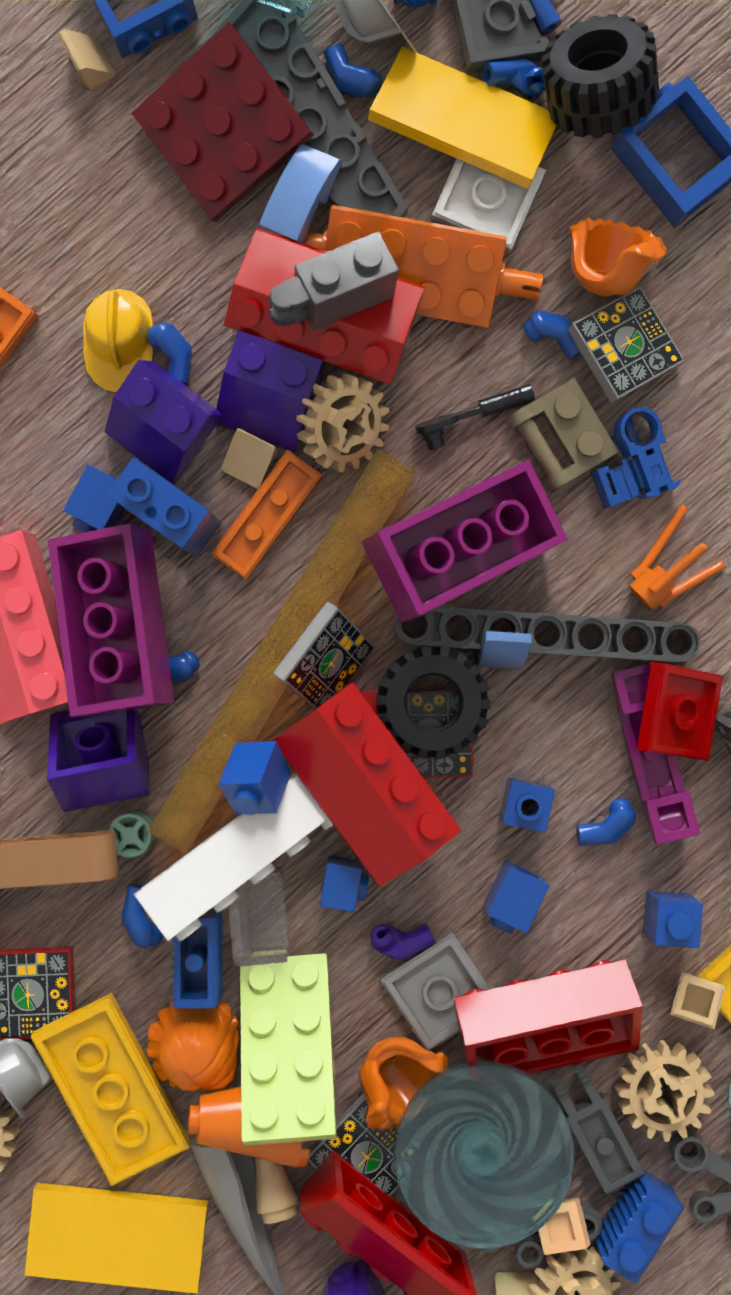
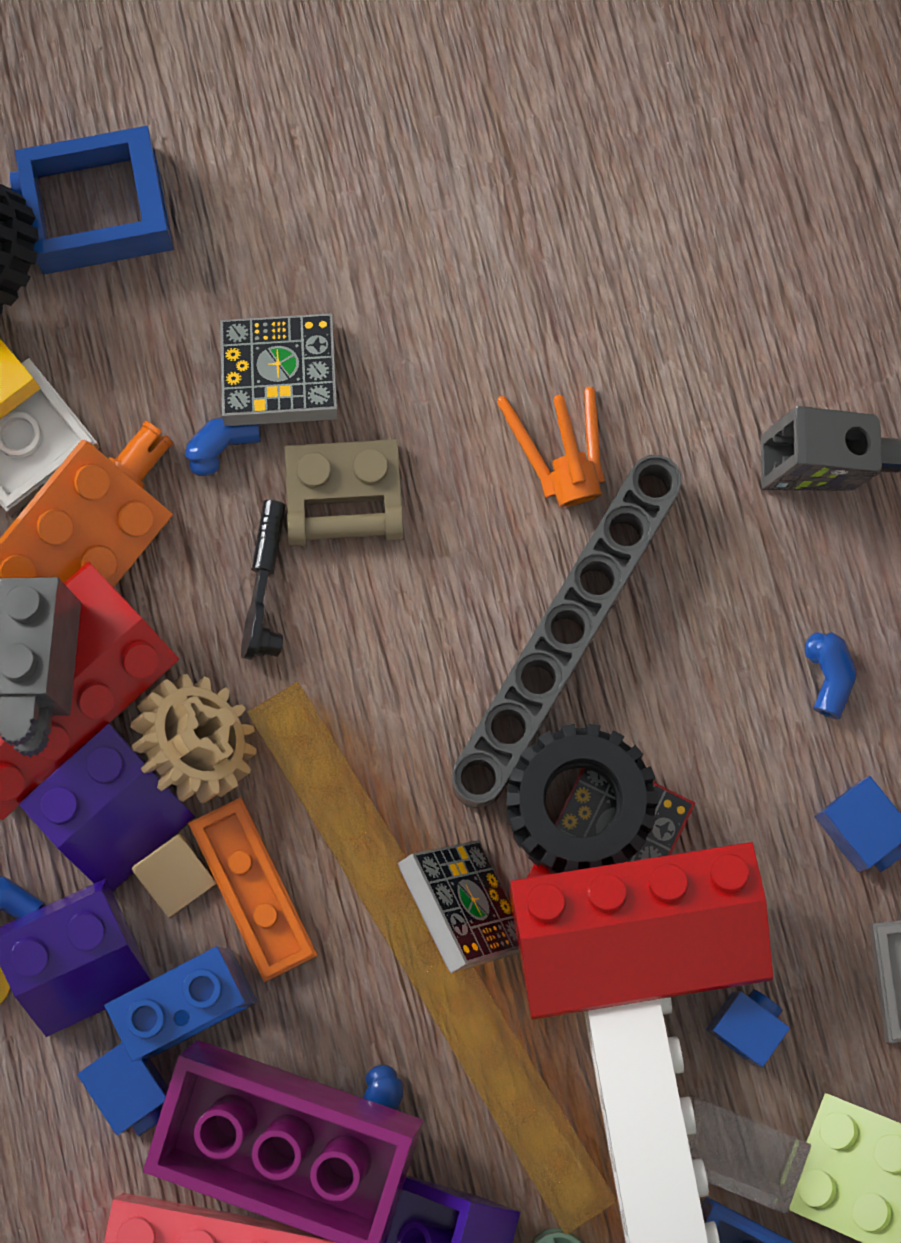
camera: 65 degrees left, 10 degrees down
(255, 778) = (566, 1060): blue brick -> none
(399, 944) = (855, 997): dark purple arm -> none
(464, 541) = (410, 667): magenta brick -> none
(503, 650) = (562, 686): medium blue slope -> none
(515, 794) = (742, 764): blue plate -> none
(611, 255) = (169, 333): orange hair -> none
(642, 471) = (434, 421): blue piece -> none
(655, 775) = (772, 578): magenta slope -> none
(679, 711) = (737, 521): red tile -> none

